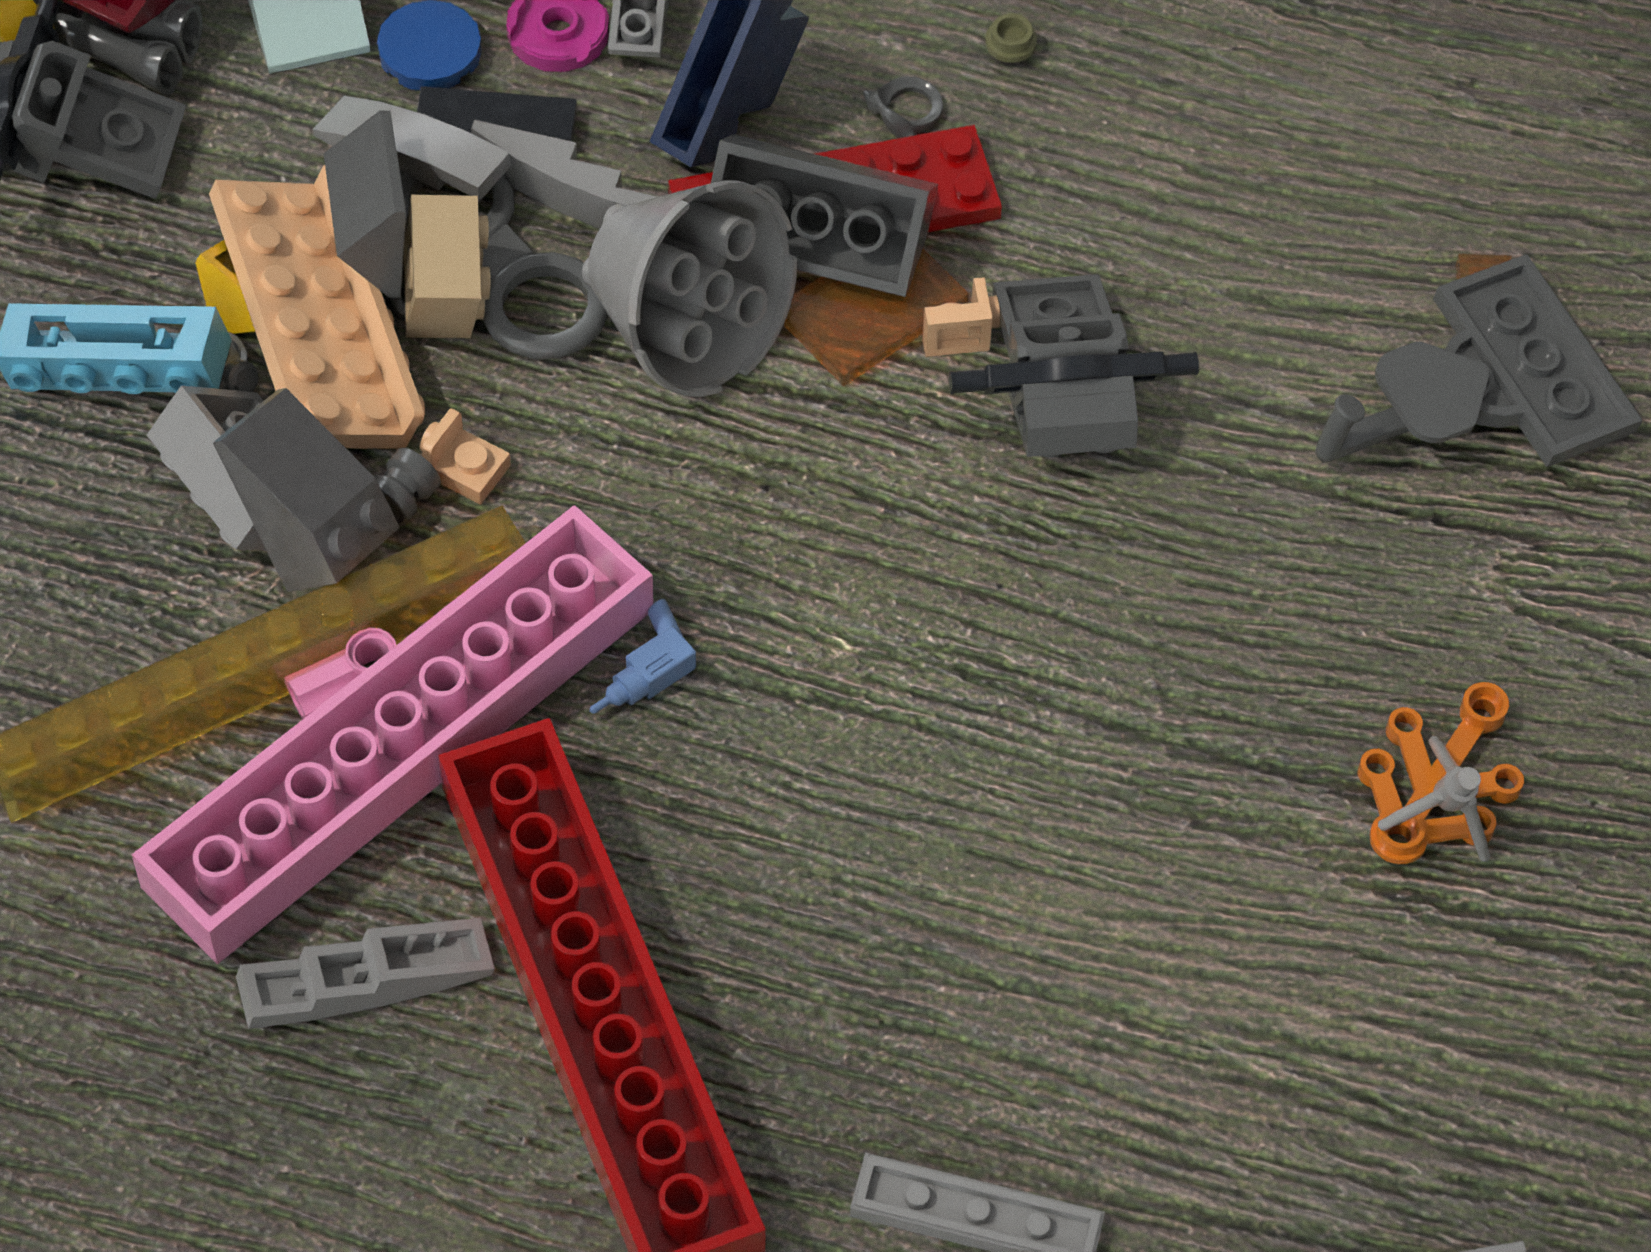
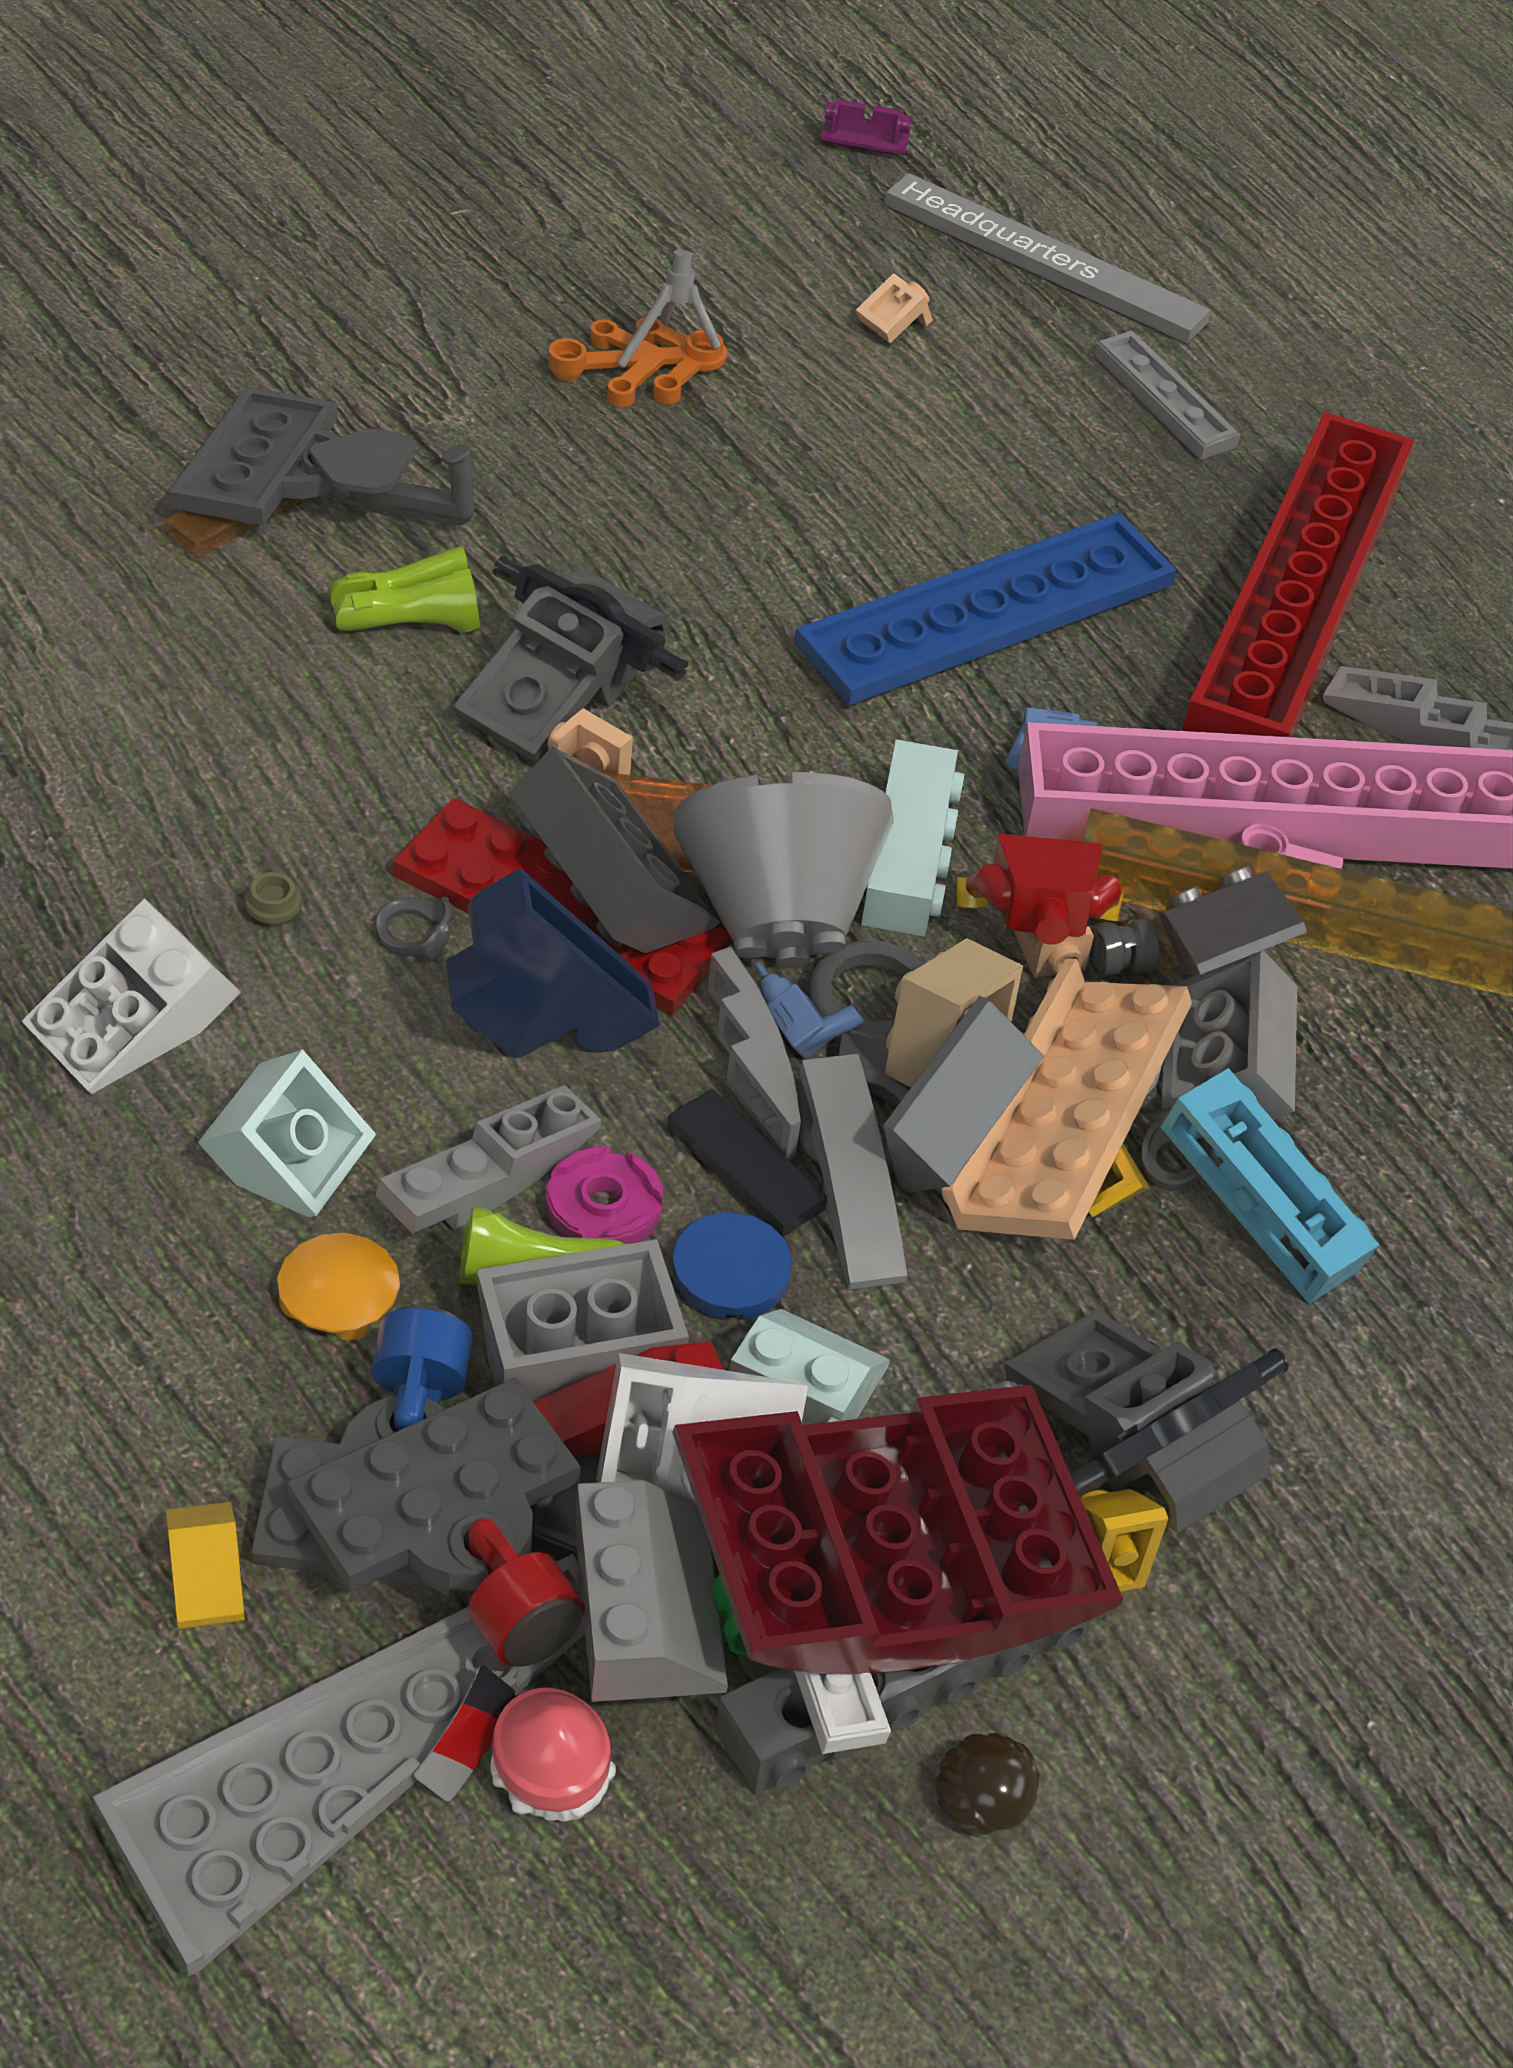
camera: 140 degrees left, 10 degrees down
(486, 436) = (1044, 886): none -> red torso
(558, 233) = (800, 1018): none -> medium blue piece
(654, 450) = (904, 878): none -> light aqua brick
(839, 756) = (983, 608): none -> blue plate
(1260, 378) = (422, 592): none -> lime piece
(1314, 1062) = (895, 307): none -> light nougat bracket

